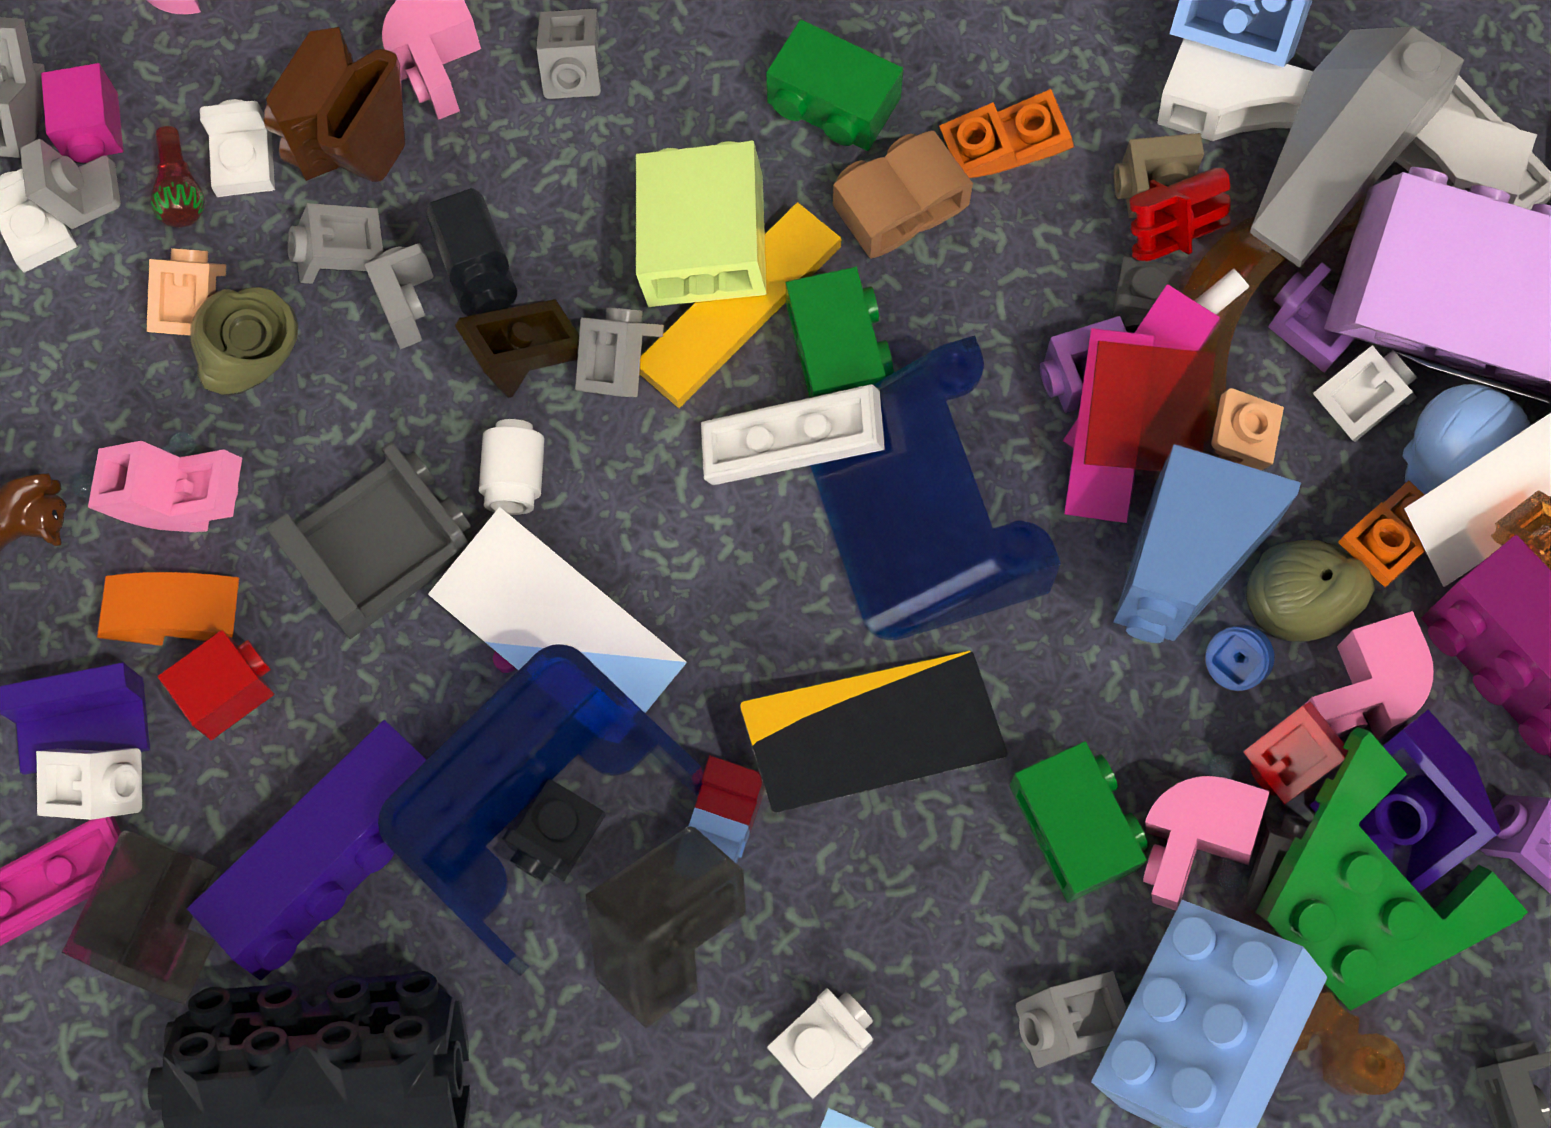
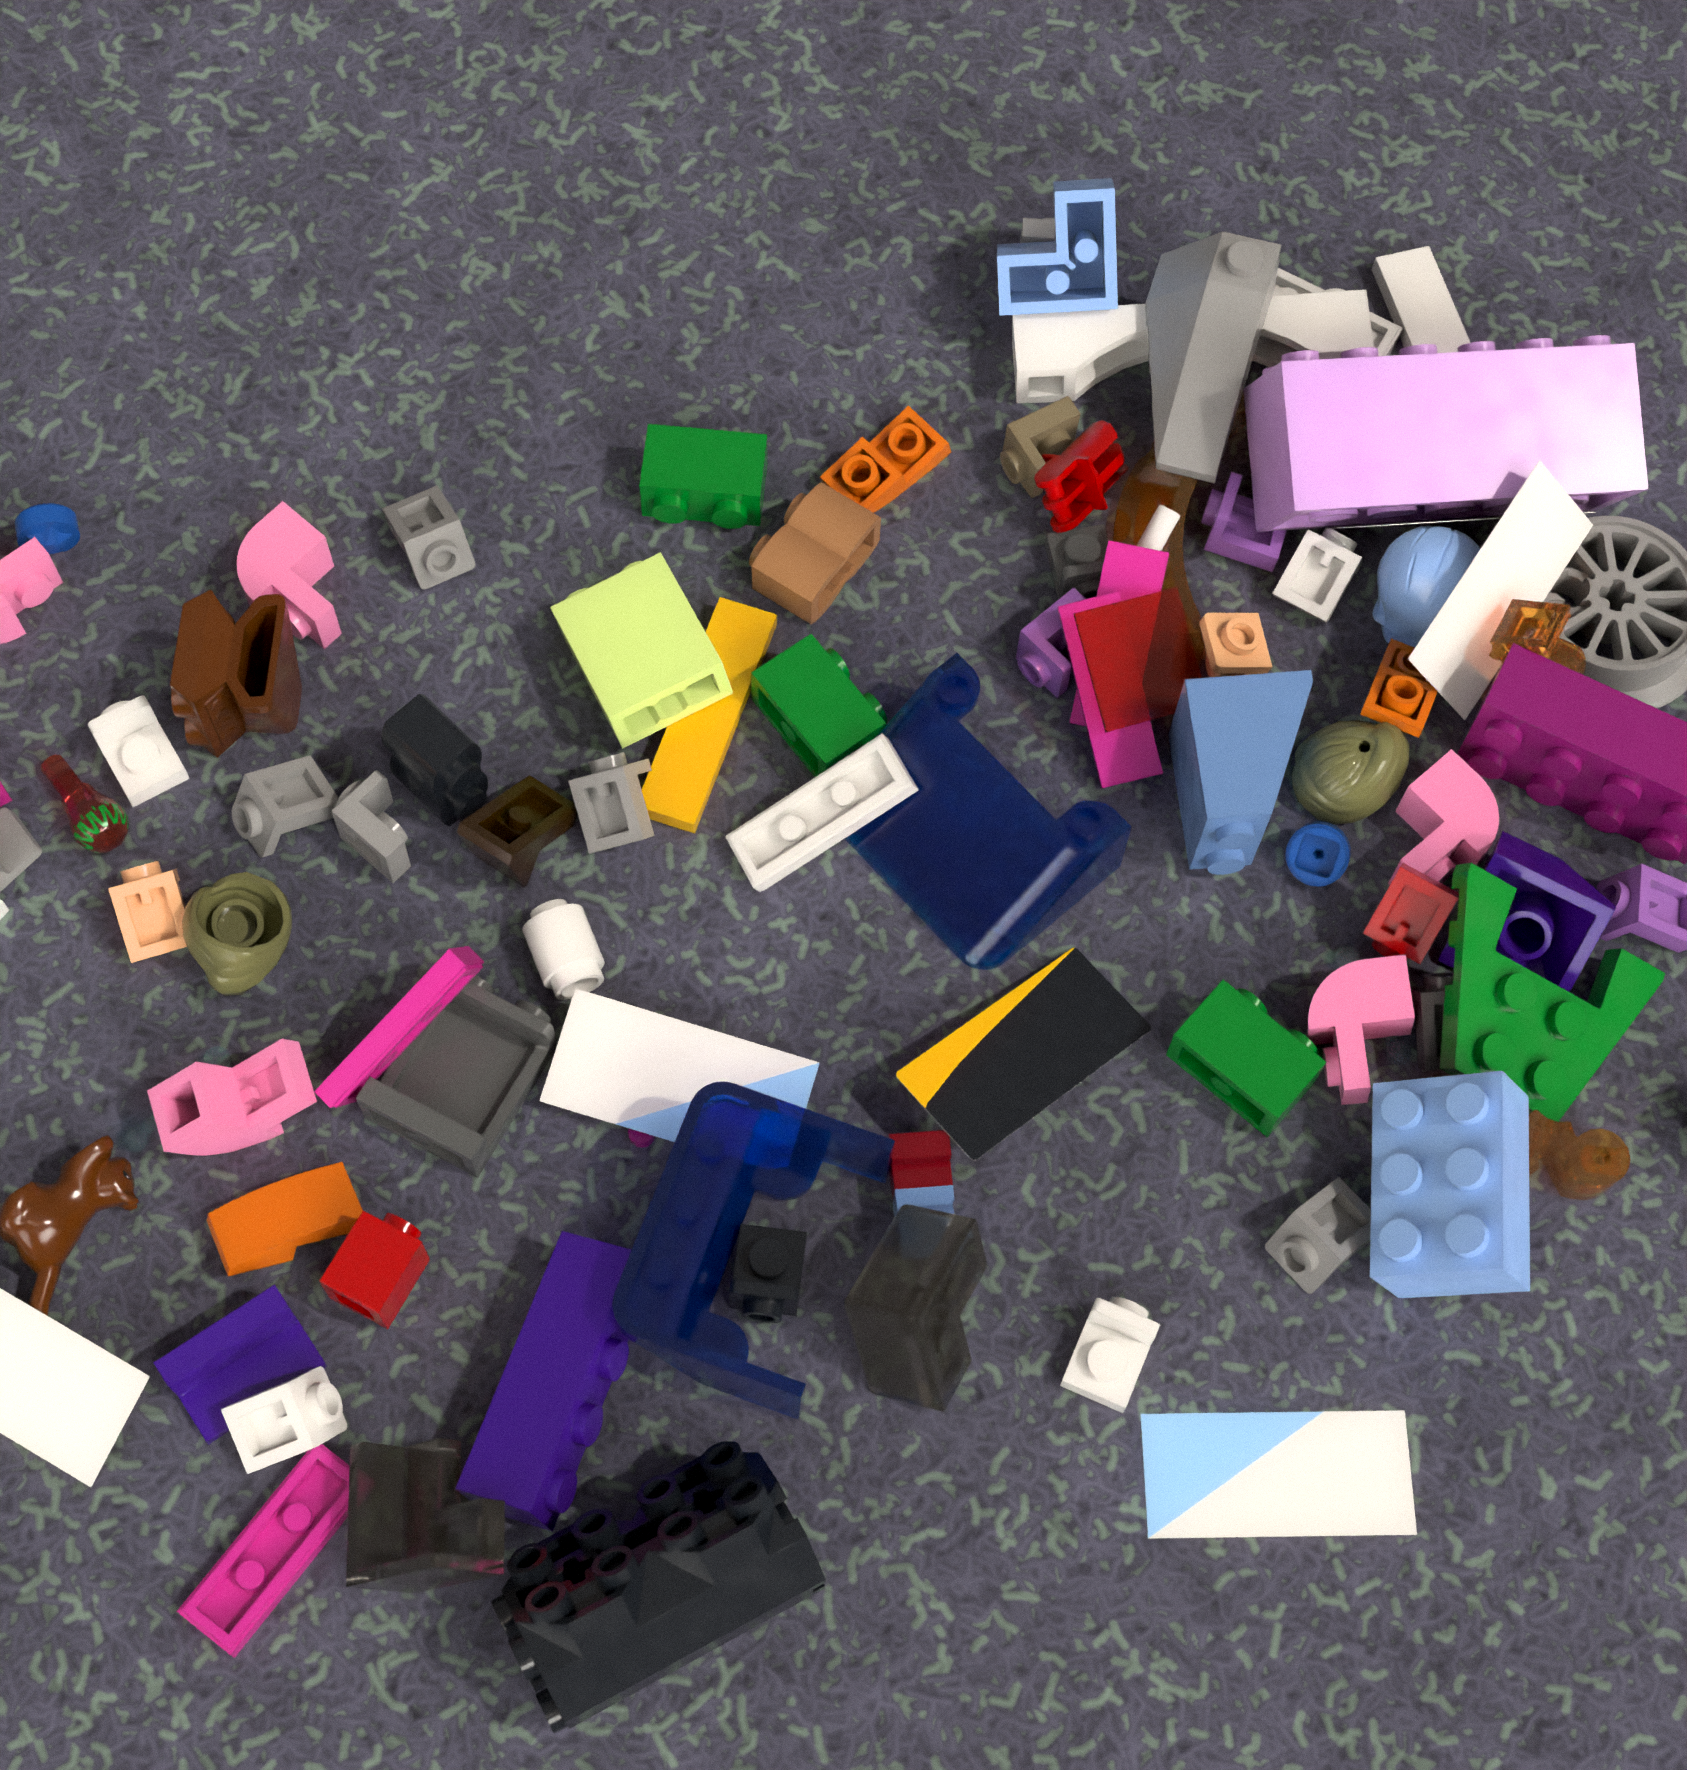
camera: 30 degrees left, 5 degrees down
(332, 478) = (401, 1026): none -> dark pink tile

